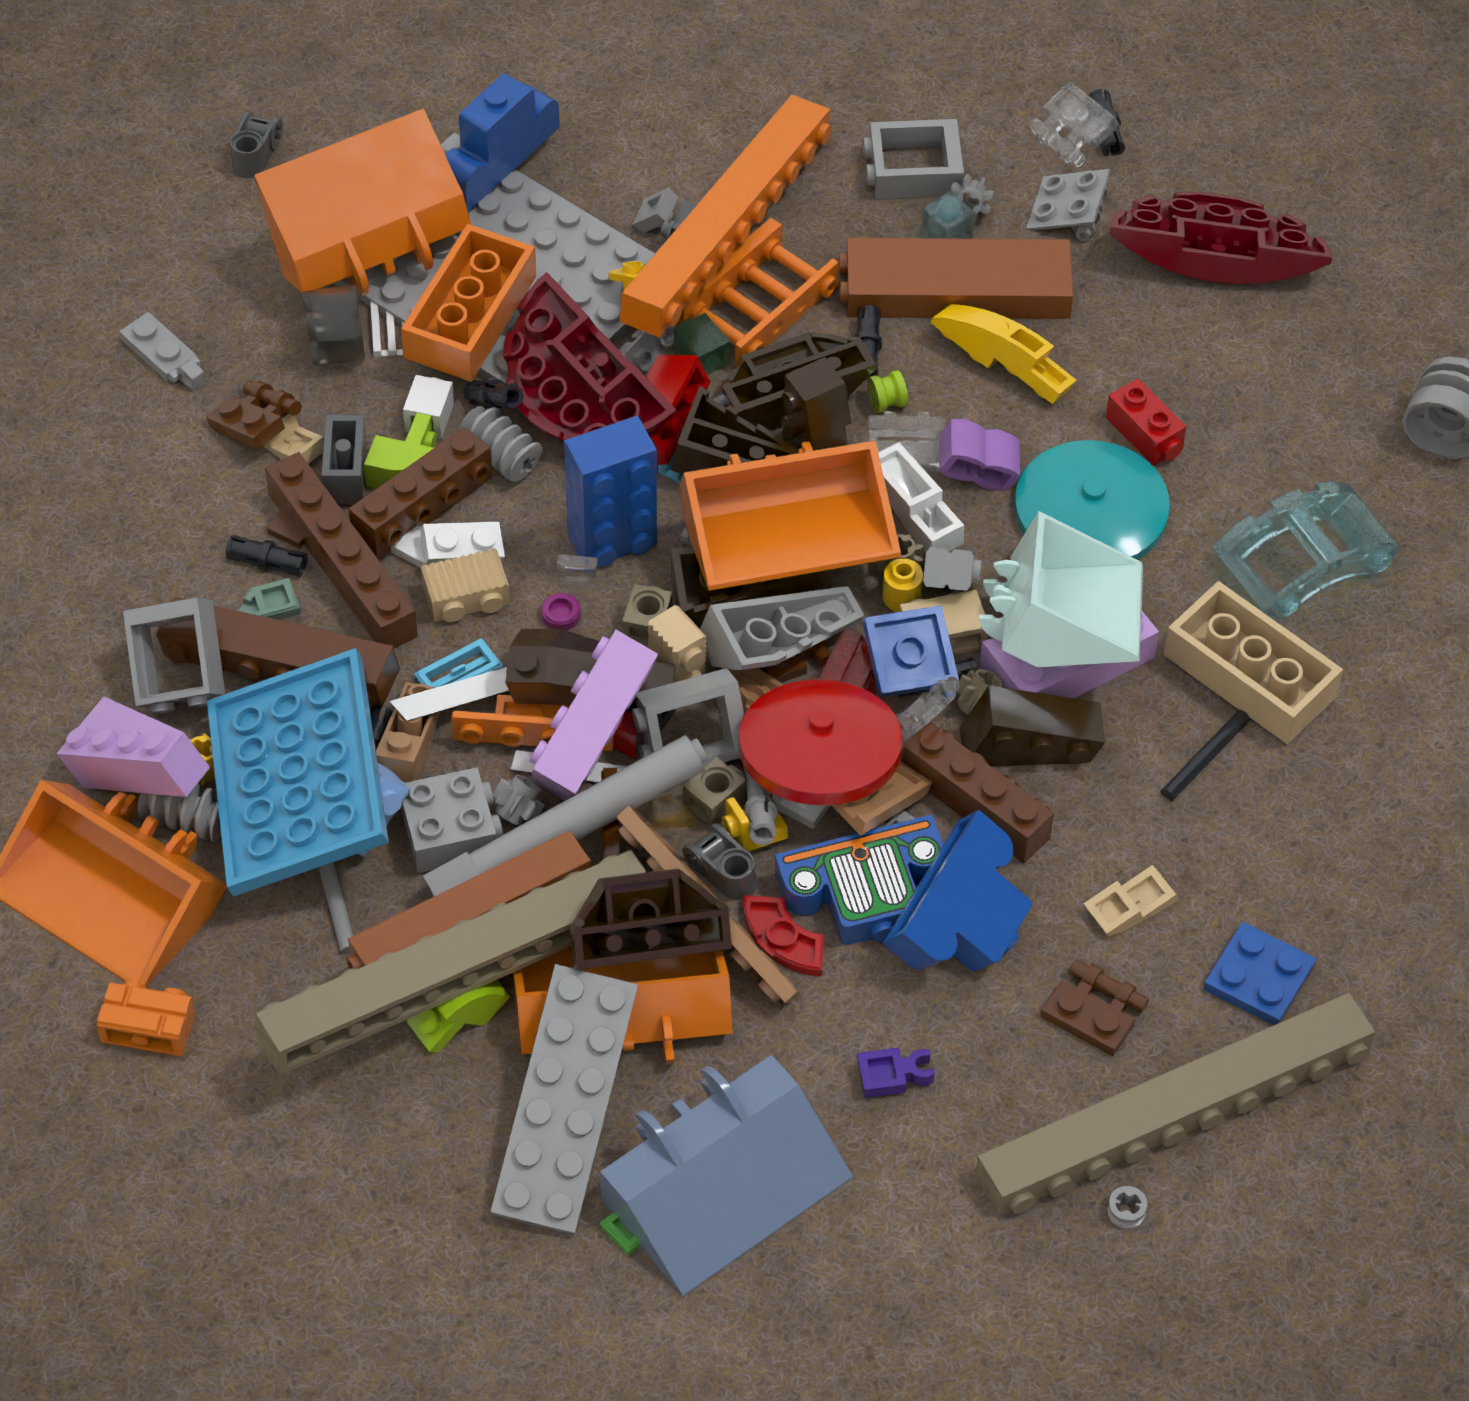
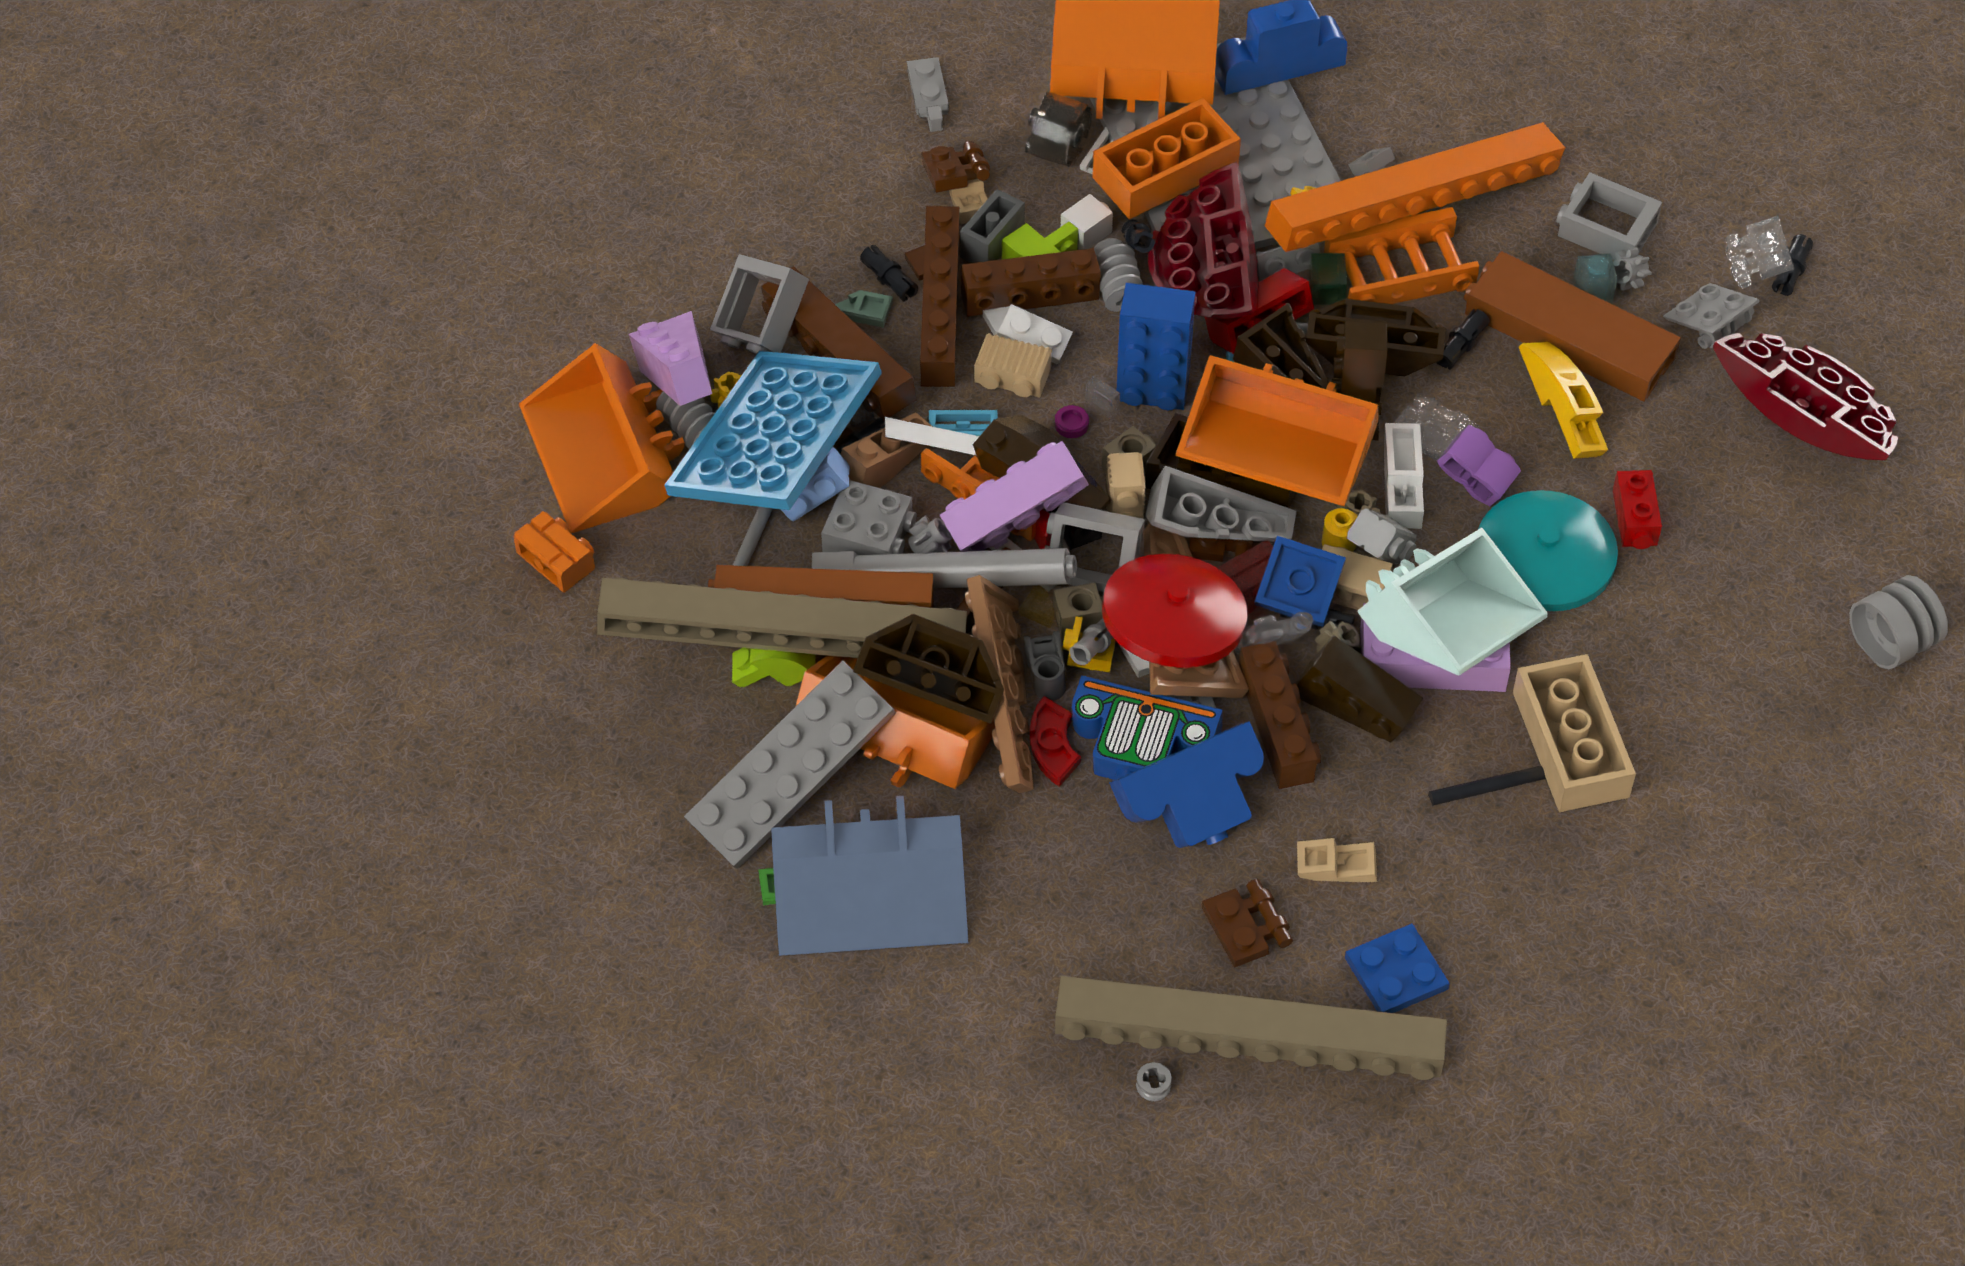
camera: 35 degrees right, 0 degrees up
(886, 1072) = (1050, 879): dark purple plate -> none
(887, 391) = (1446, 383): lime wheel -> none
(1335, 502) = (1693, 635): clear light blue window -> none

